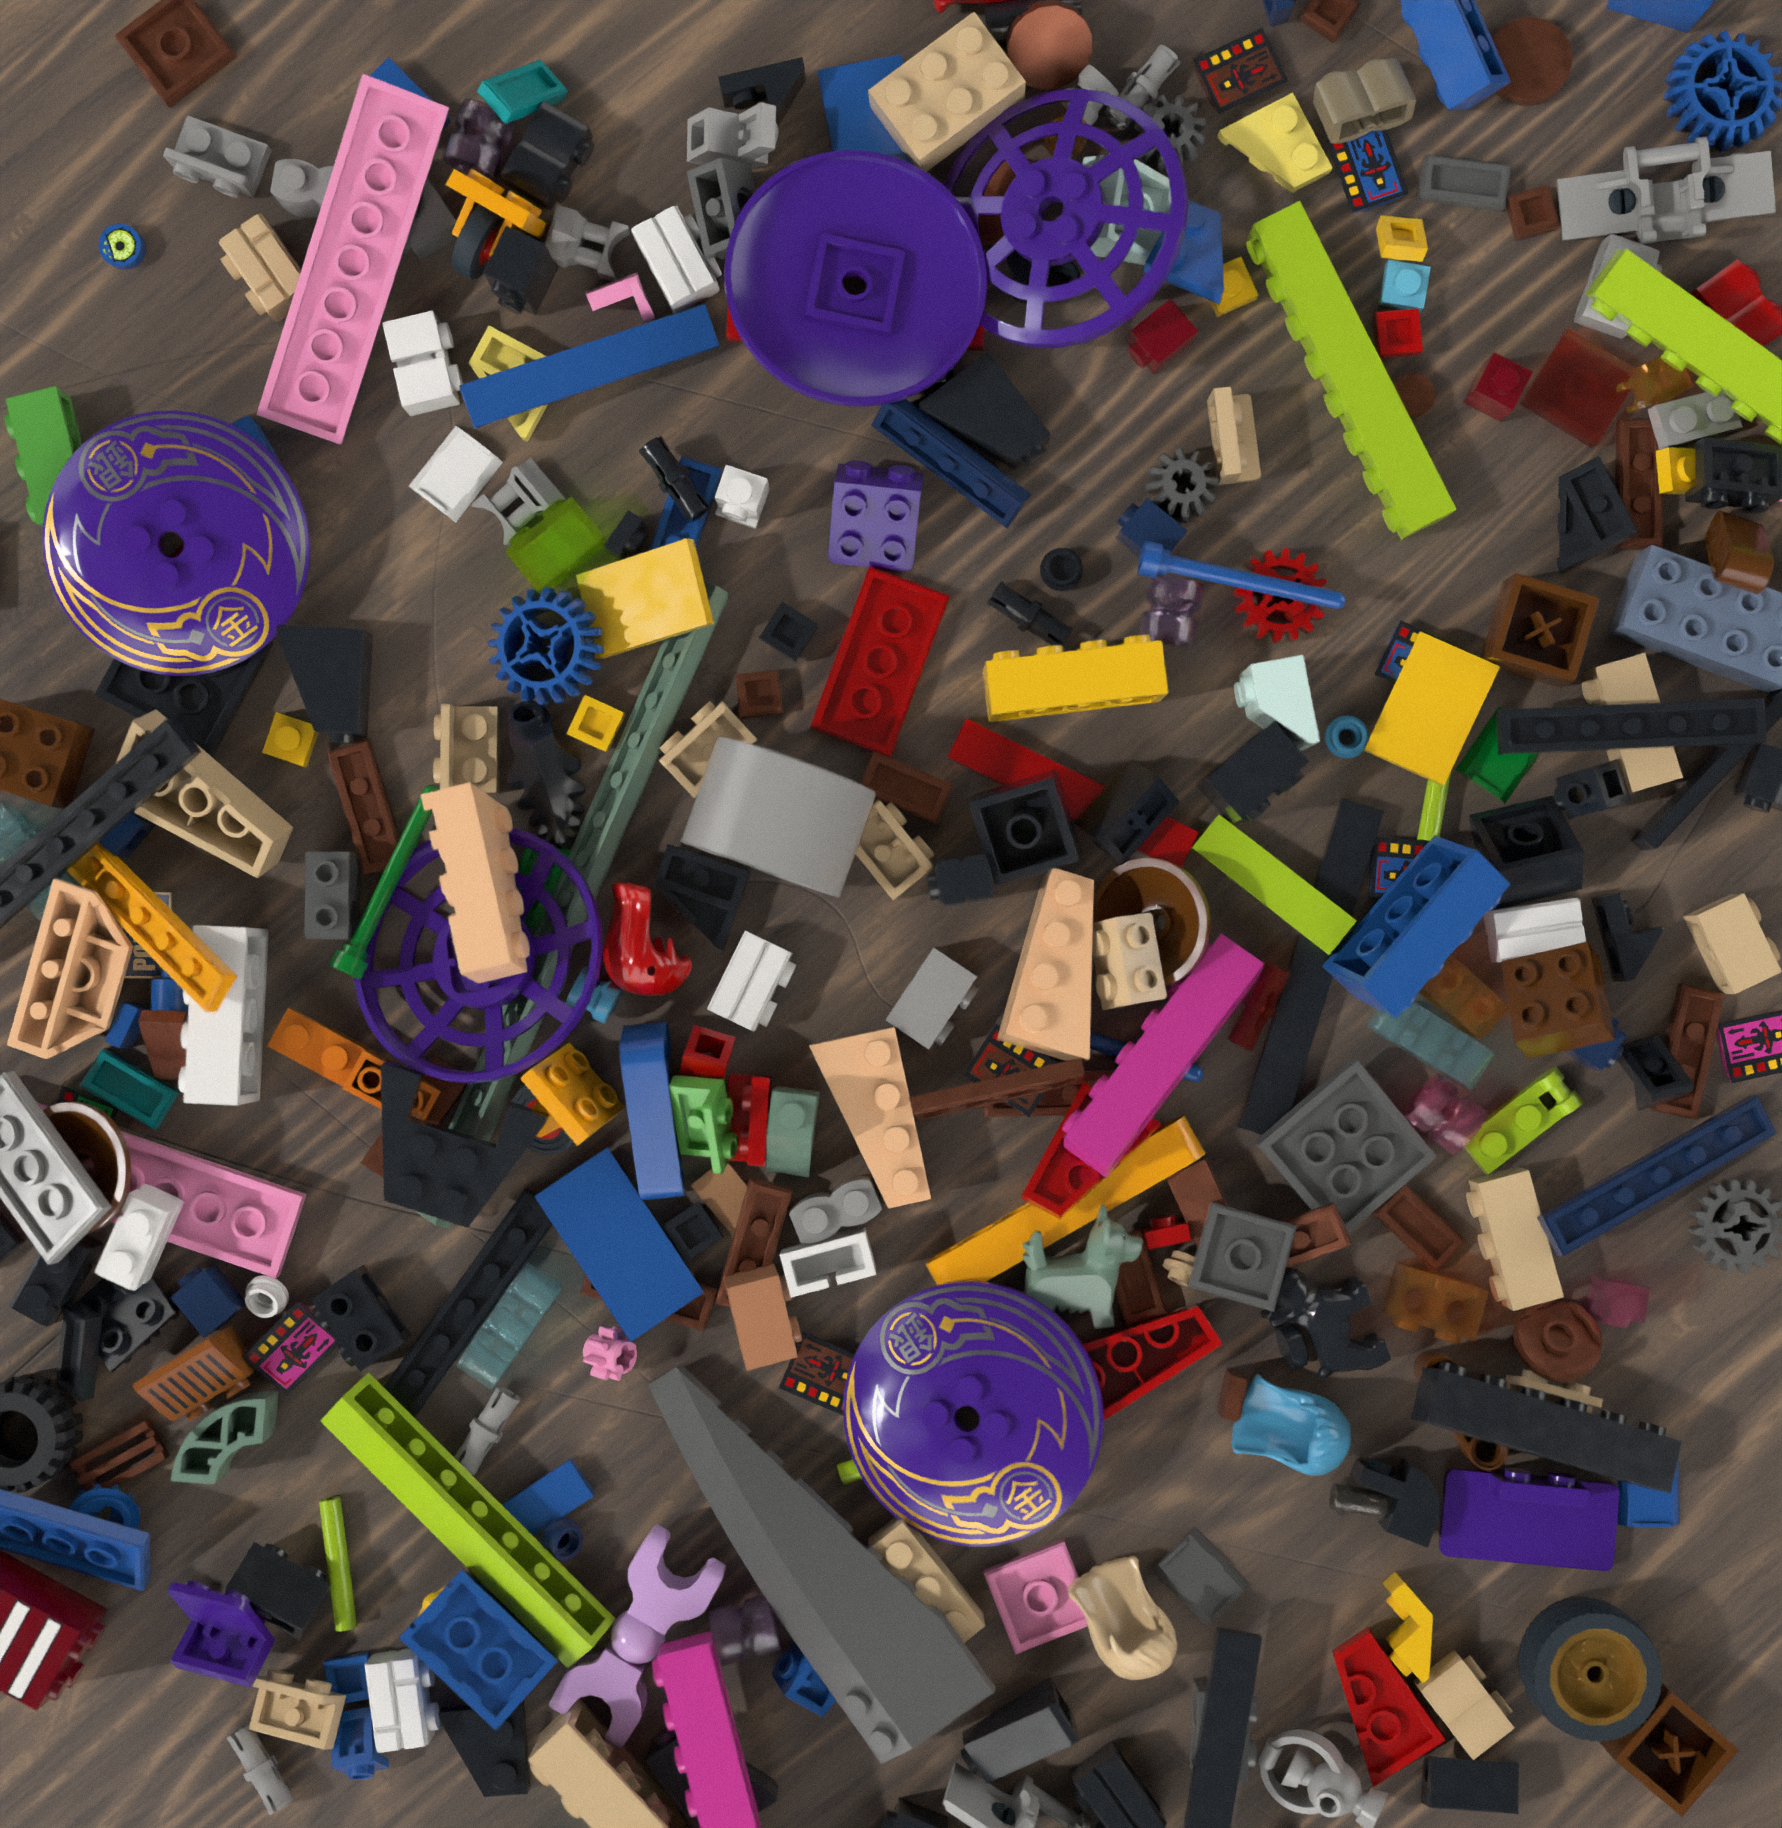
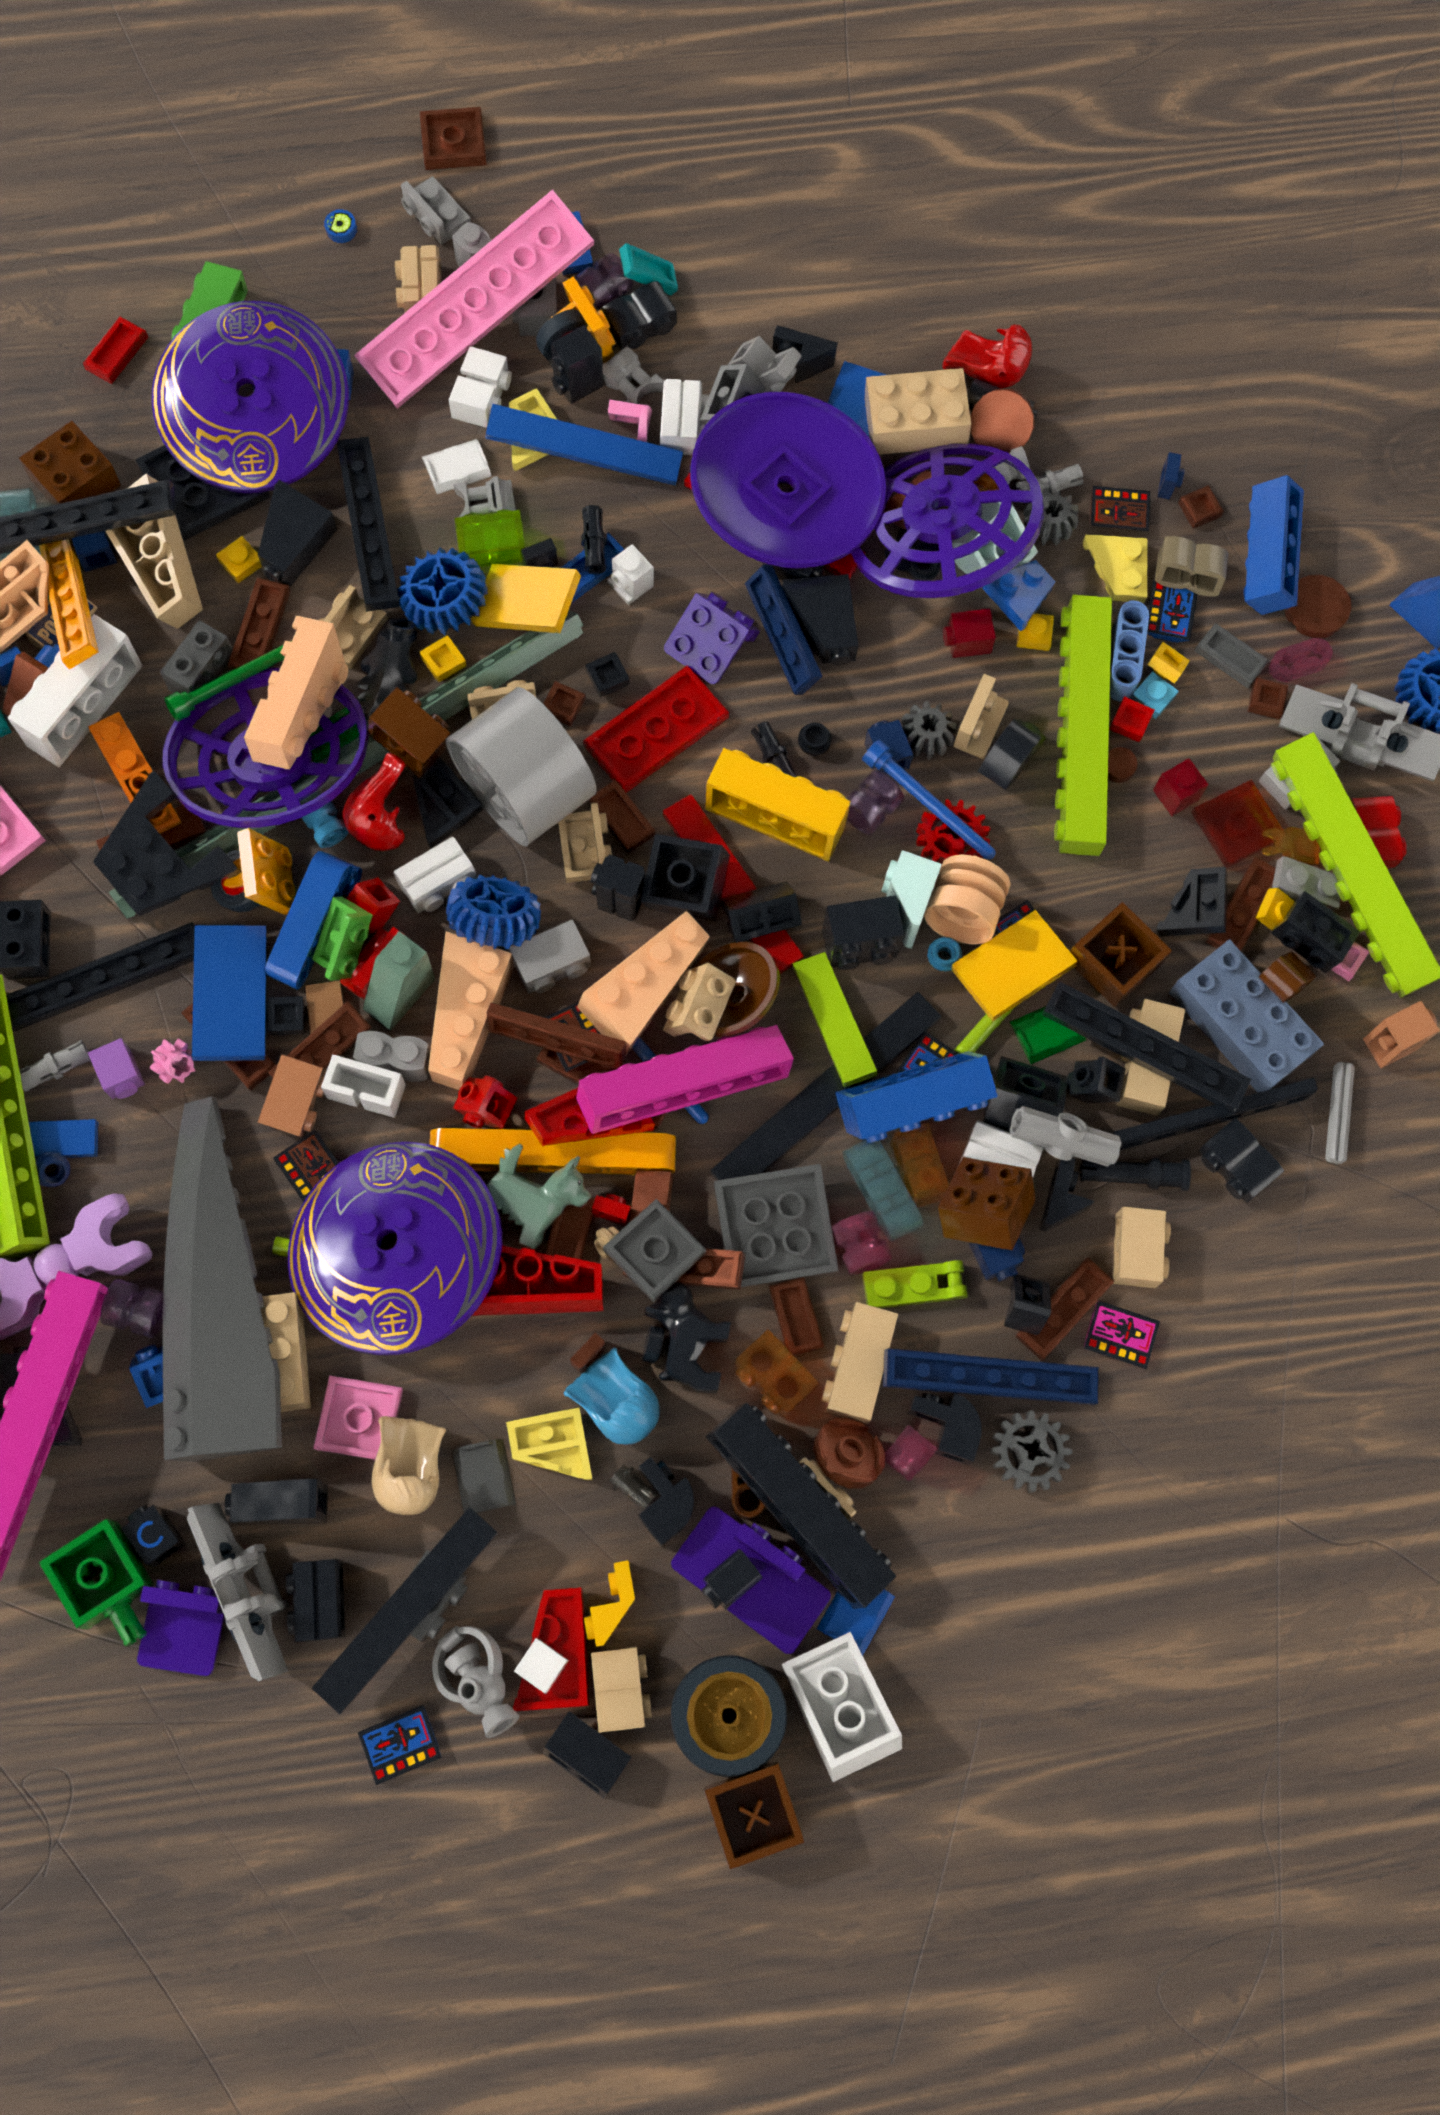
camera: 25 degrees right, 15 degrees down
(408, 613) = (367, 524): none -> black plate
(509, 1326) = (118, 1004): clear light blue beam -> none
(557, 1397) = (116, 1069): none -> medium lavender brick
(631, 852) = (409, 731): none -> reddish brown brick
(845, 1005) = (493, 911): none -> blue gear
(957, 1204) = (484, 1103): none -> red brick
(1250, 1505) = (552, 1443): none -> light yellow wing
(1259, 1006) = (792, 1082): clear red pin -> none
(1292, 457) = (1011, 752): none -> black brick
(1343, 660) = (967, 899): none -> light nougat wheel
(1352, 232) = (1132, 638): none -> medium blue beam
(1378, 1731) = (541, 1665): none -> white tile
(1521, 1546) = (730, 1580): none -> black brick
(1551, 147) = (1303, 665): none -> clear pink beam
(1600, 879) = (1065, 1136): none -> light grey piece
(1653, 1249) = (959, 1422): none -> black brick
(1693, 1591) = (842, 1707): none -> white slope
(1701, 853) = (1151, 1173): none -> black pin

